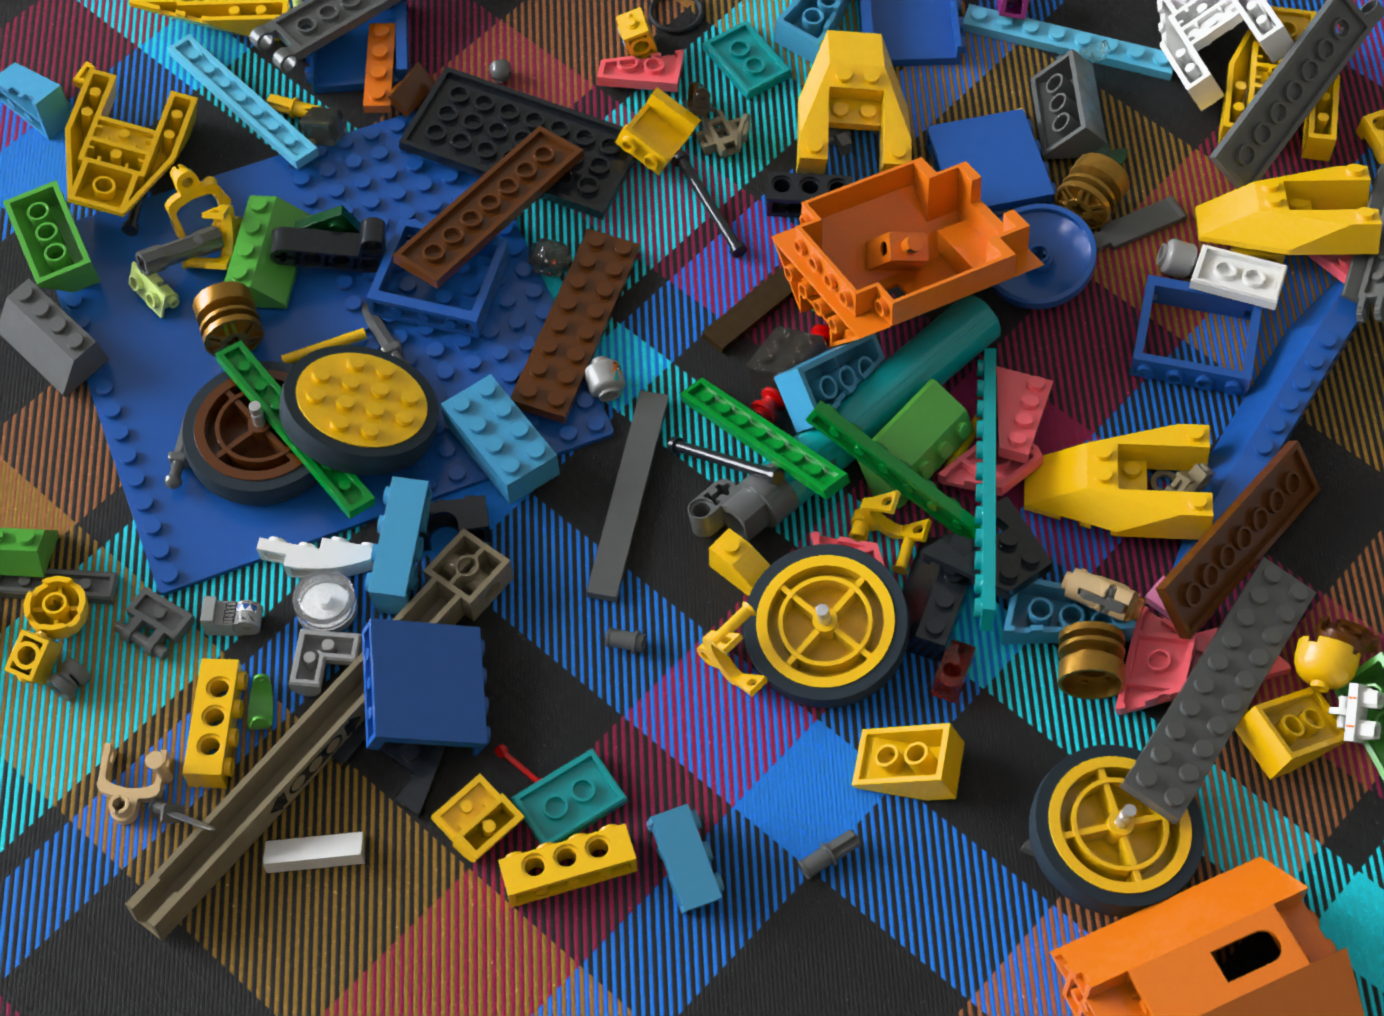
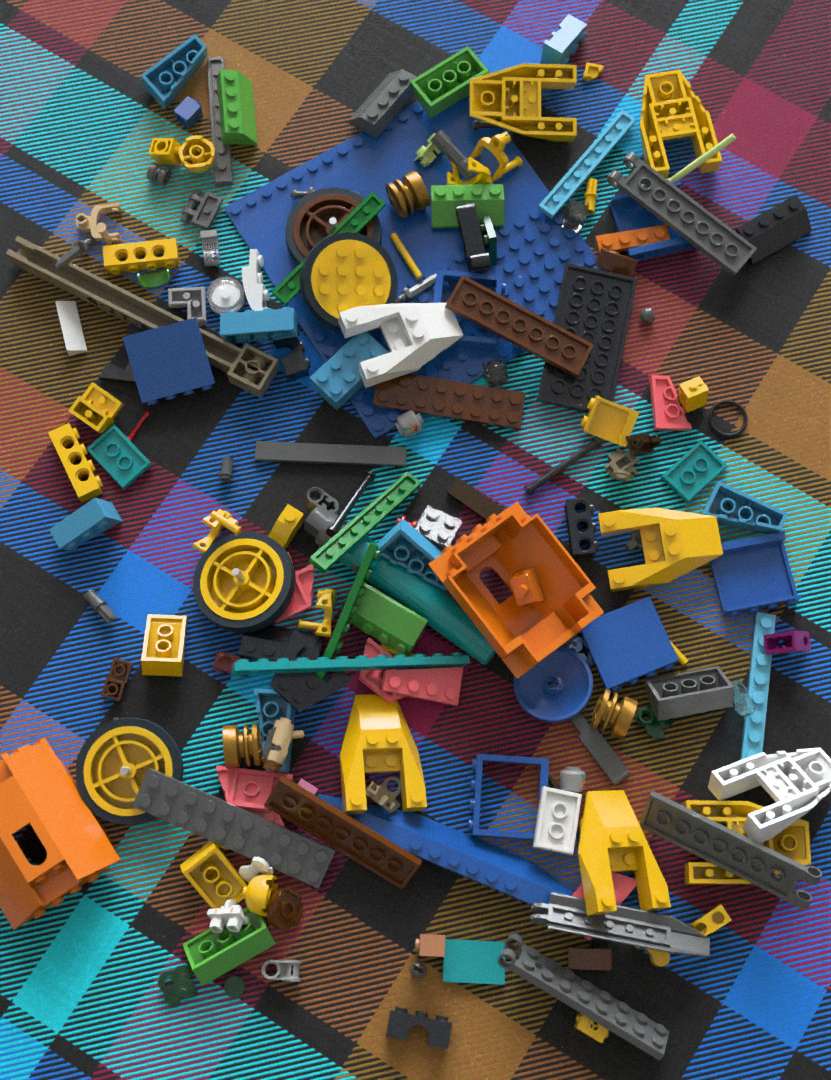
camera: 75 degrees right, 15 degrees up
(468, 333) = (411, 331): none -> white wedge
(955, 844) = (118, 679): none -> reddish brown slope
(1280, 661) = (257, 865): none -> white piece

